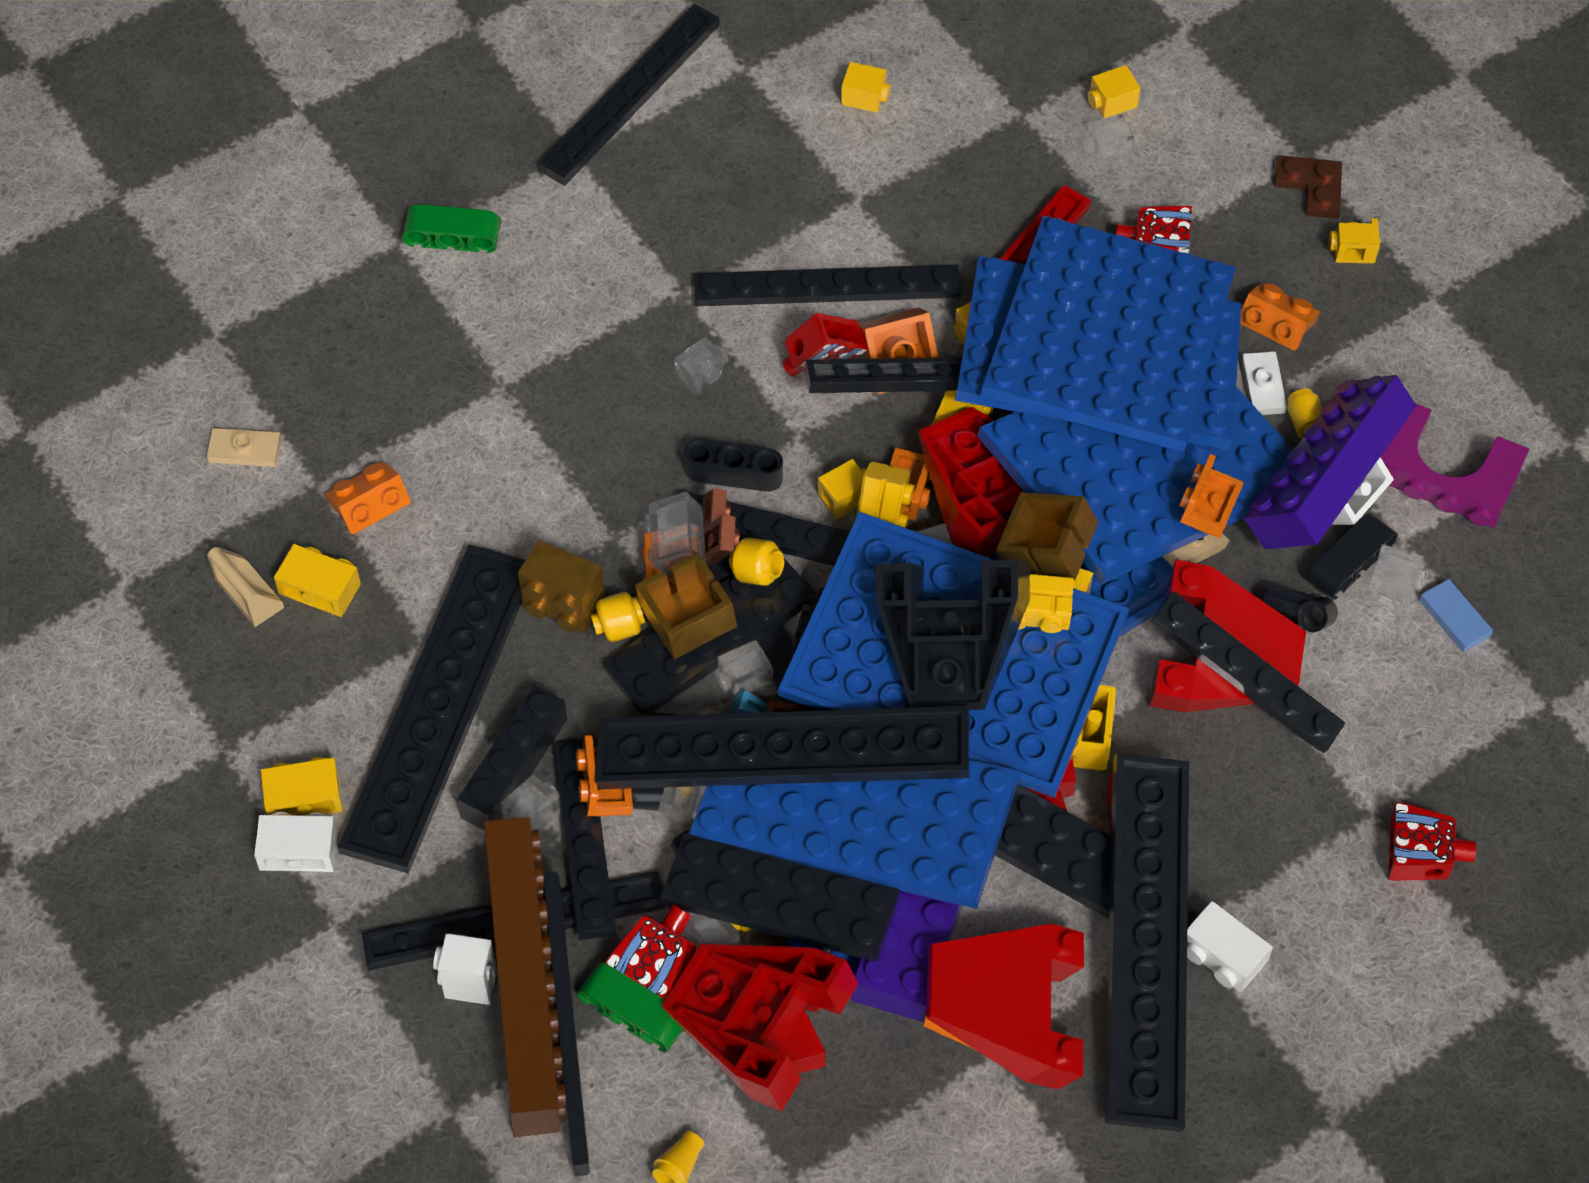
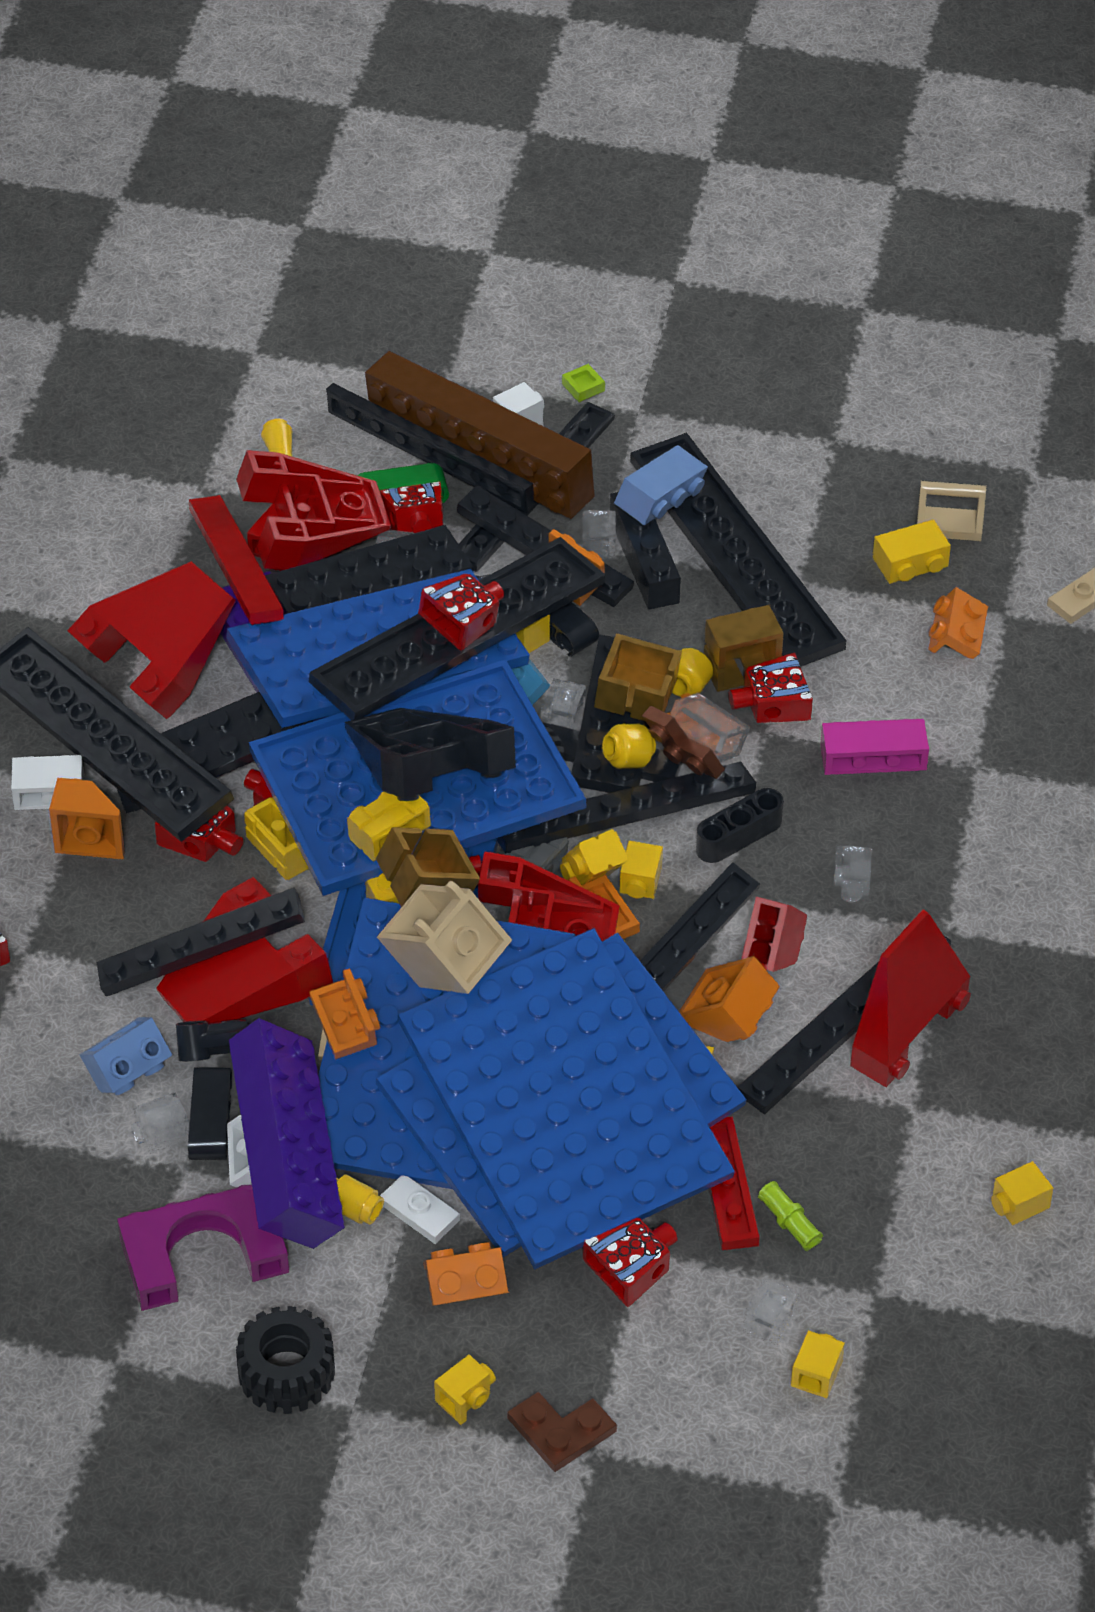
camera: 135 degrees right, 10 degrees down
(296, 842) = (715, 418): white brick -> none
(302, 787) = (751, 444): yellow brick -> none
(348, 988) = (583, 382): none -> lime plate
(449, 771) = (661, 485): none -> medium blue brick
(560, 446) = (874, 746): none -> dark pink brick
(580, 537) = (774, 691): none -> red torso
(776, 735) = (461, 608): none -> red torso
(793, 209) = (910, 986): none -> red wedge
(874, 1013) = (236, 560): none -> red tile
(1024, 189) = (790, 1215): none -> lime pin
(1109, 435) = (444, 938): none -> tan container
(1241, 864) = (85, 820): none -> orange slope
(1381, 638) = (126, 1056): none -> medium blue brick
(1456, 615) = (88, 1137): medium blue tile -> none
(1457, 359) = (285, 1384): none -> black tyre

